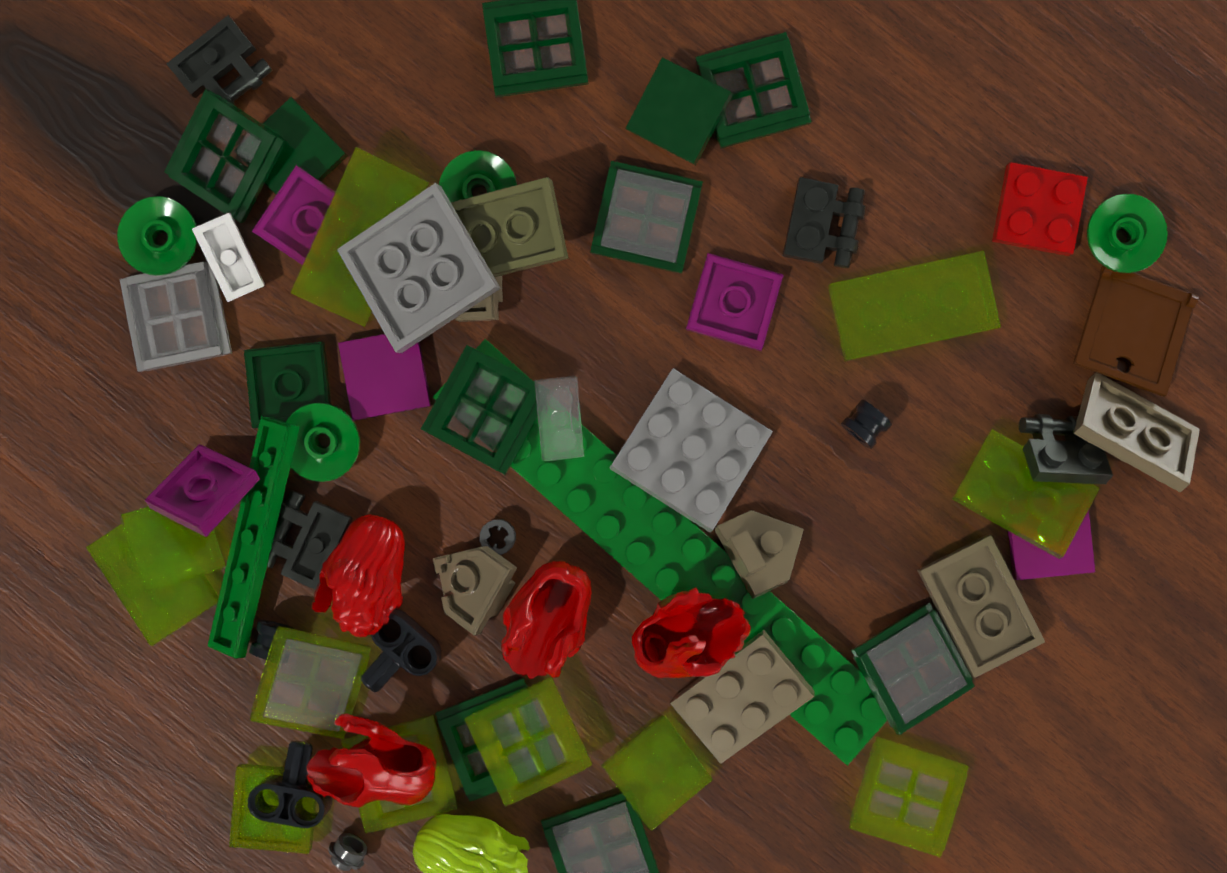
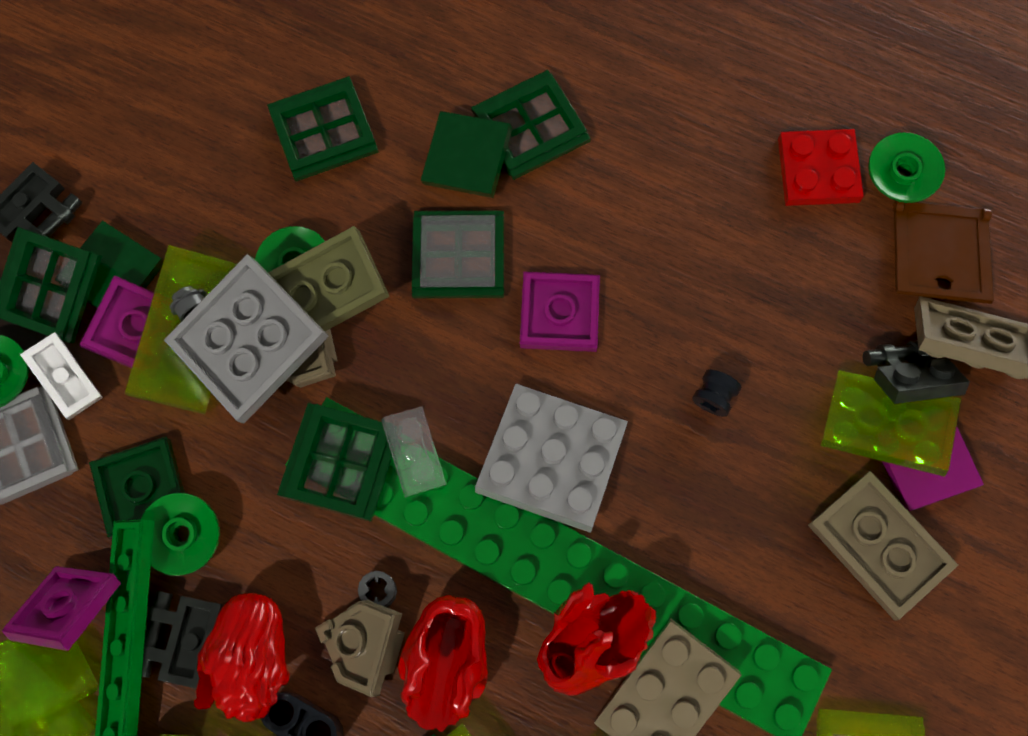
camera: 10 degrees left, 15 degrees down
(366, 214) = (185, 301): none -> dark grey plate
(381, 379) = (233, 457): magenta tile -> none
(760, 550) = (646, 539): dark tan plate -> none
(812, 218) = (613, 222): pearl dark grey plate -> none
(913, 668) = (834, 626): clear piece -> none
(914, 306) = (730, 277): clear neon green tile -> none

